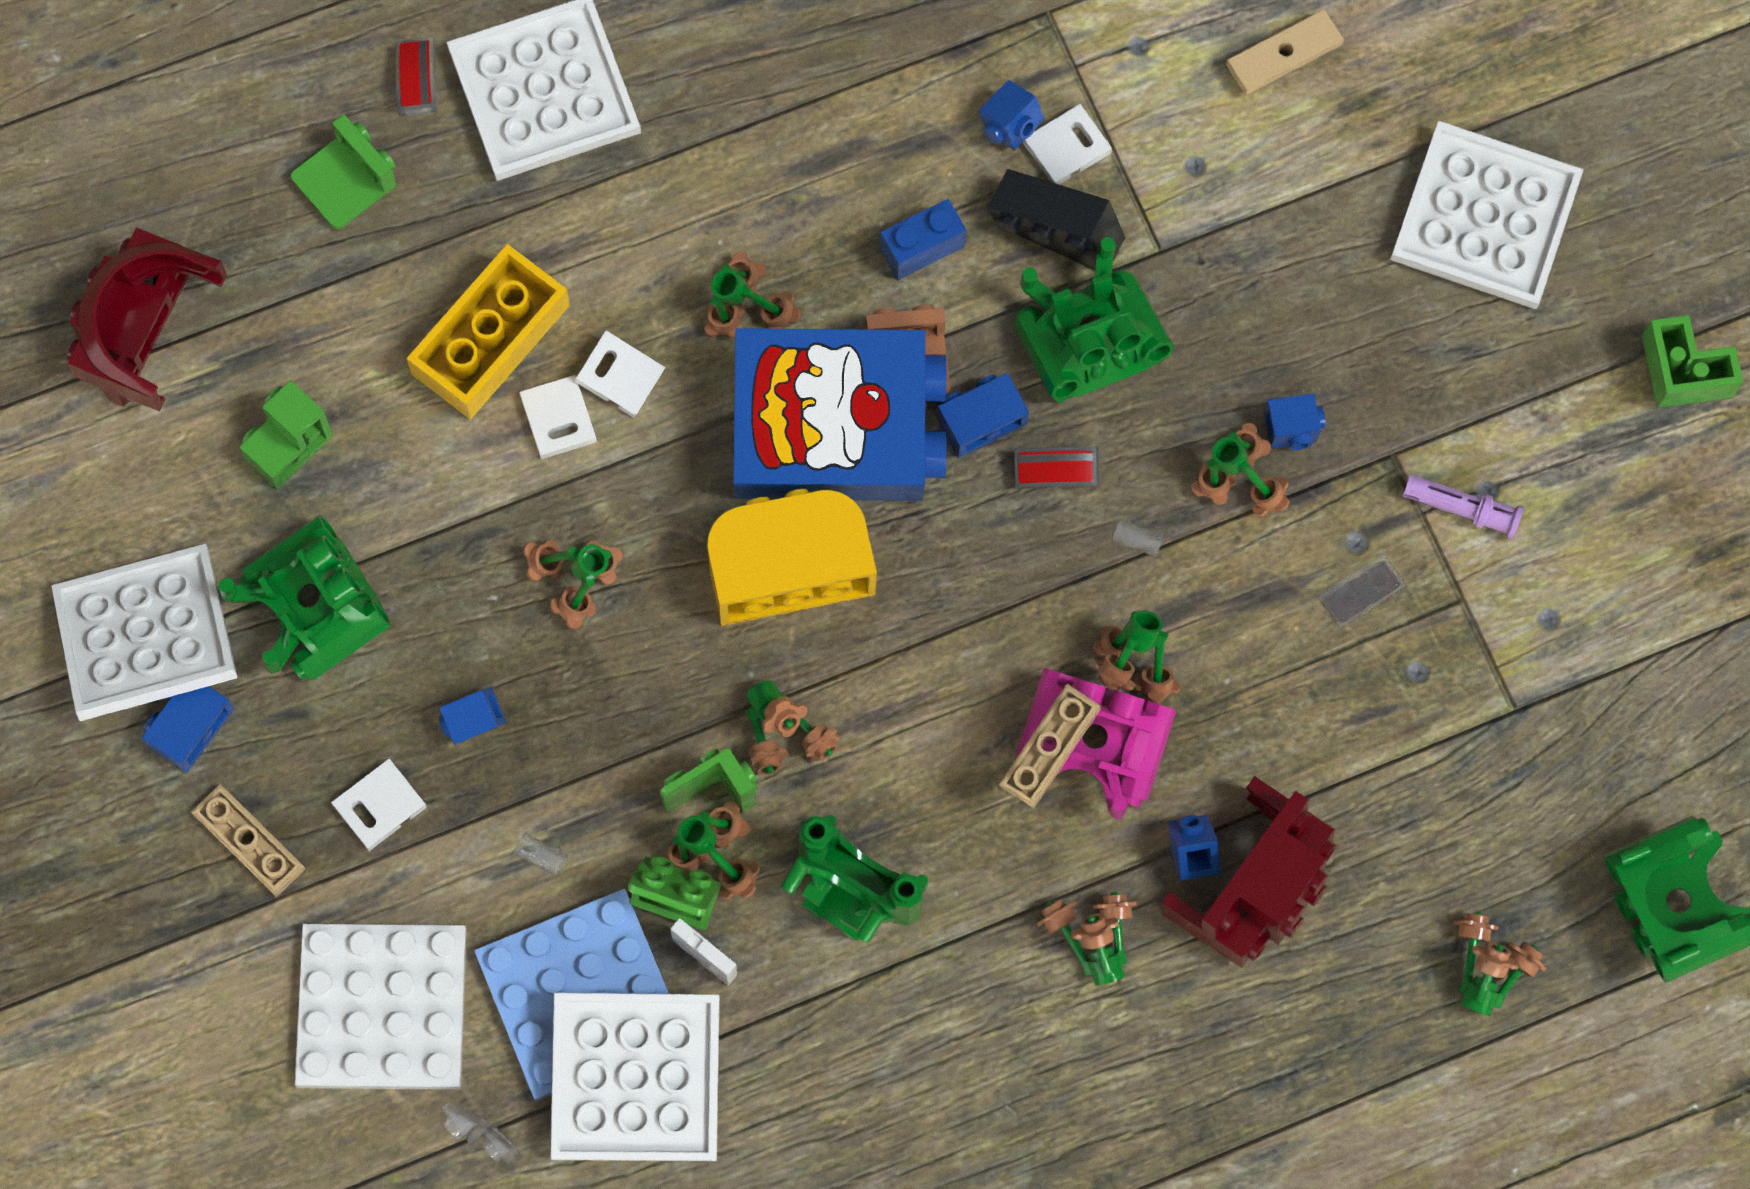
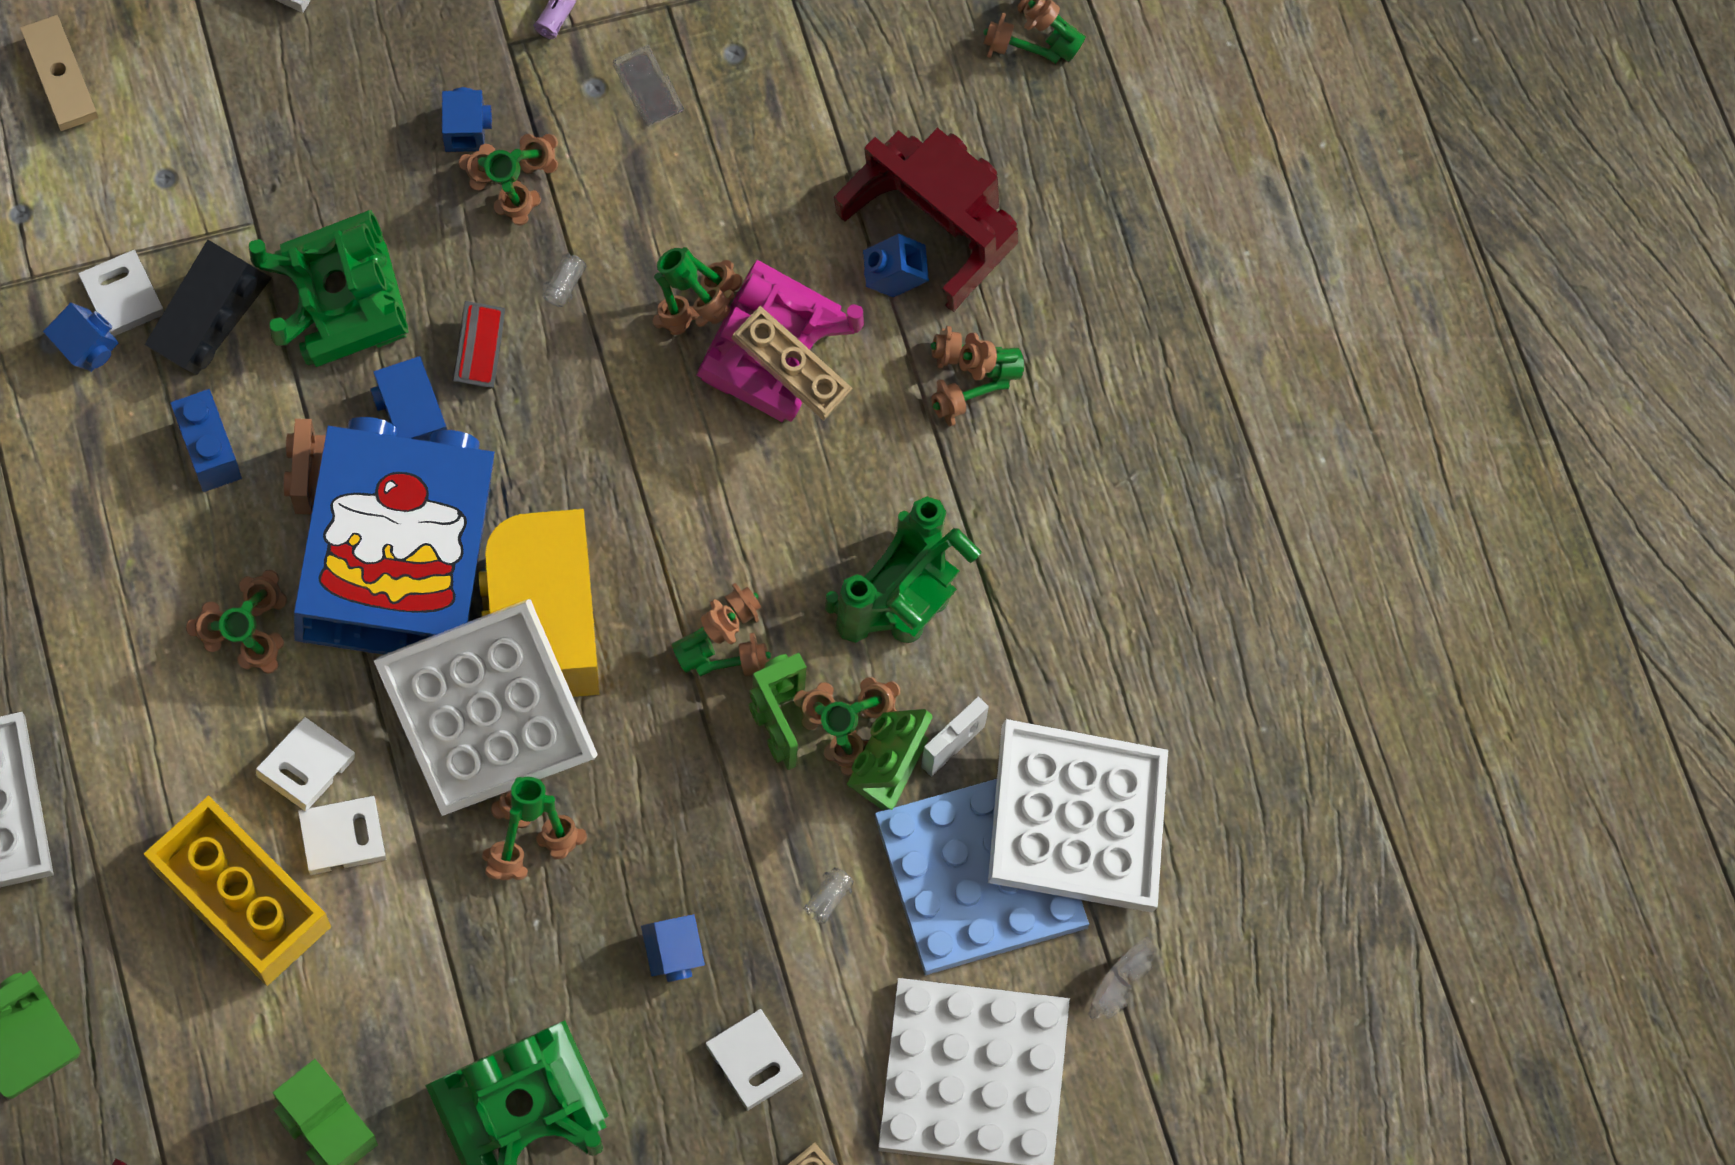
camera: 85 degrees left, 5 degrees down
(672, 513) = (485, 707): none -> white plate

